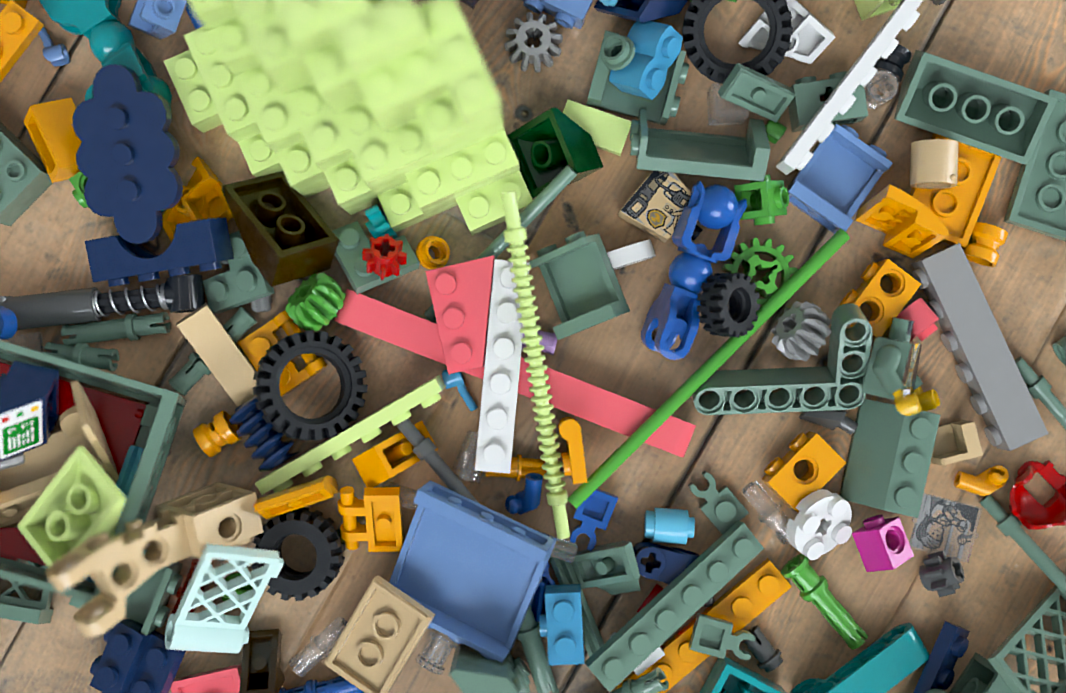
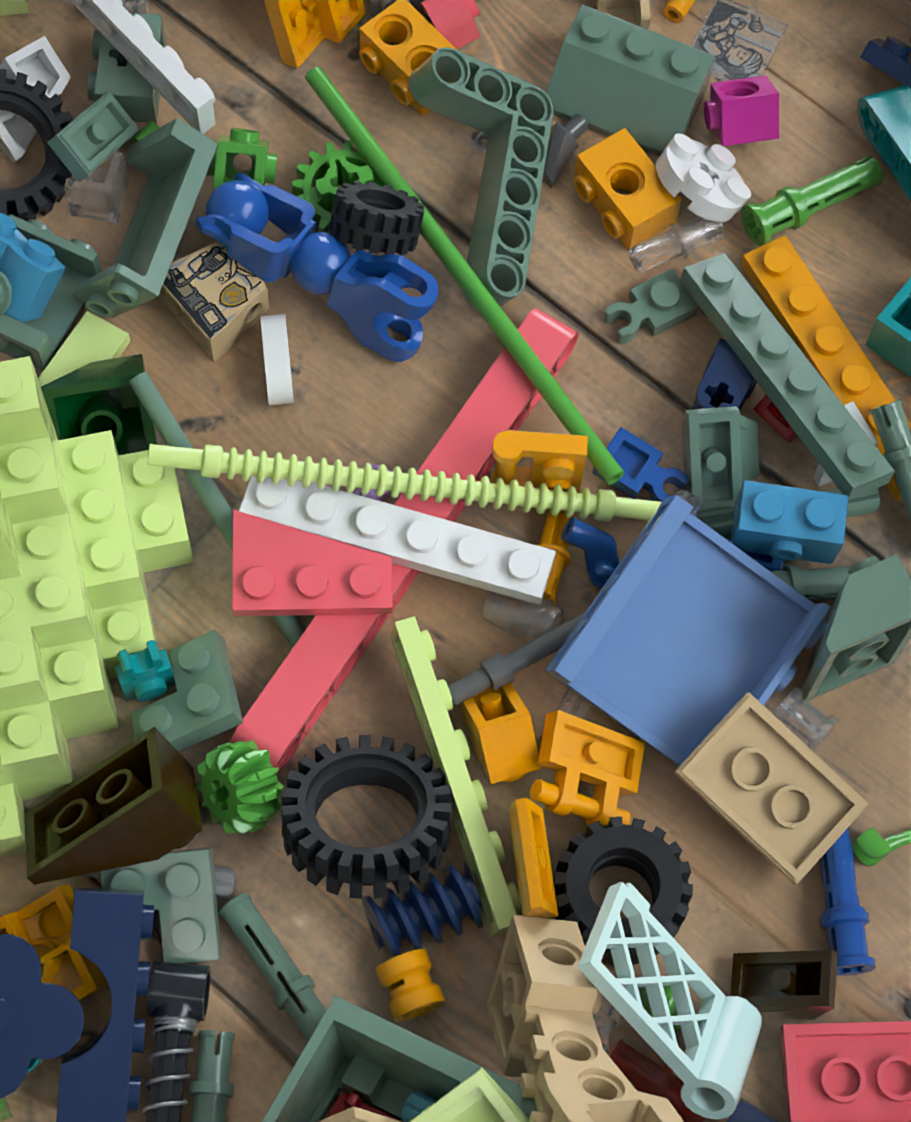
camera: 80 degrees left, 20 degrees down
(219, 353) = (289, 946): tan tile -> none
(262, 339) = (288, 893): light orange plate -> none
(318, 648) = (770, 894): clear axle -> none
(384, 256) = (197, 657): red gear -> none
(439, 248) = (206, 611): light orange plate -> none
(457, 379) = (421, 614): dark azure hand -> none
(581, 283) = (305, 410): sand green panel -> none
(669, 525) = (672, 372): medium azure brick -> none
(715, 636) = (839, 330): sand green plate -> none
(763, 651) = (866, 288): dark grey pin -> none
(801, 331) = (433, 150): light grey gear -> none
(838, 178) = (245, 74): medium blue panel -> none
(894, 371) = (508, 43): sand green torso -> none
(941, 573) = (796, 51): dark grey gear -> none

